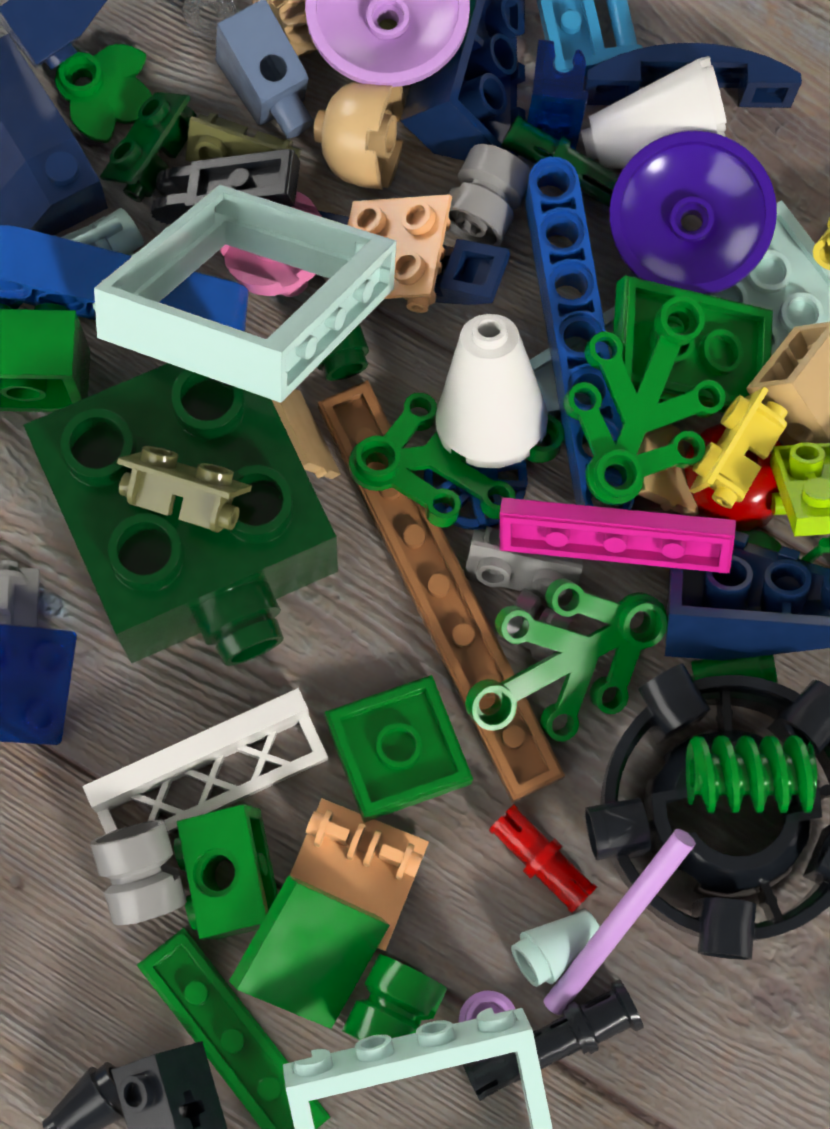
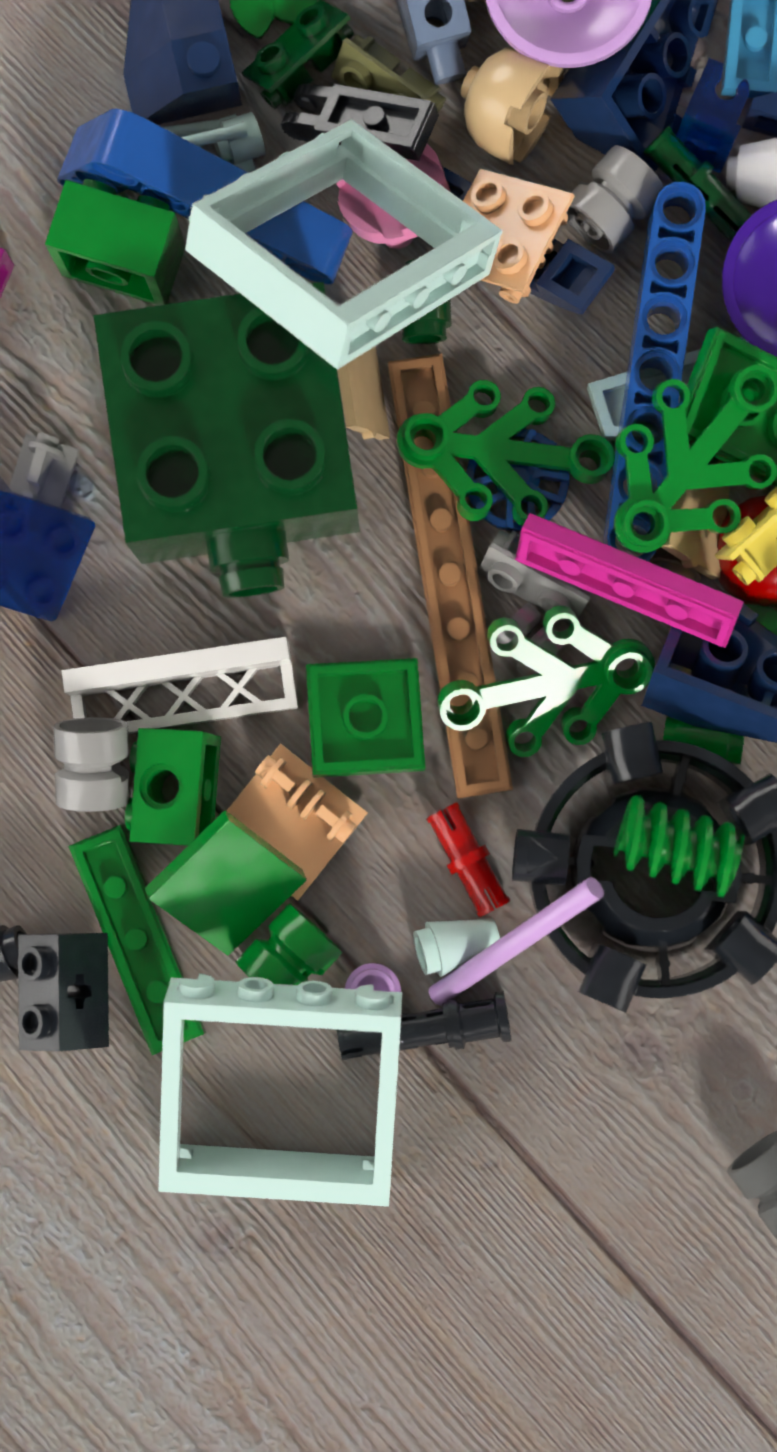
camera: 25 degrees right, 10 degrees up
(205, 489) = (244, 431): olive hinge -> none
(491, 396) = (550, 411): white cone -> none

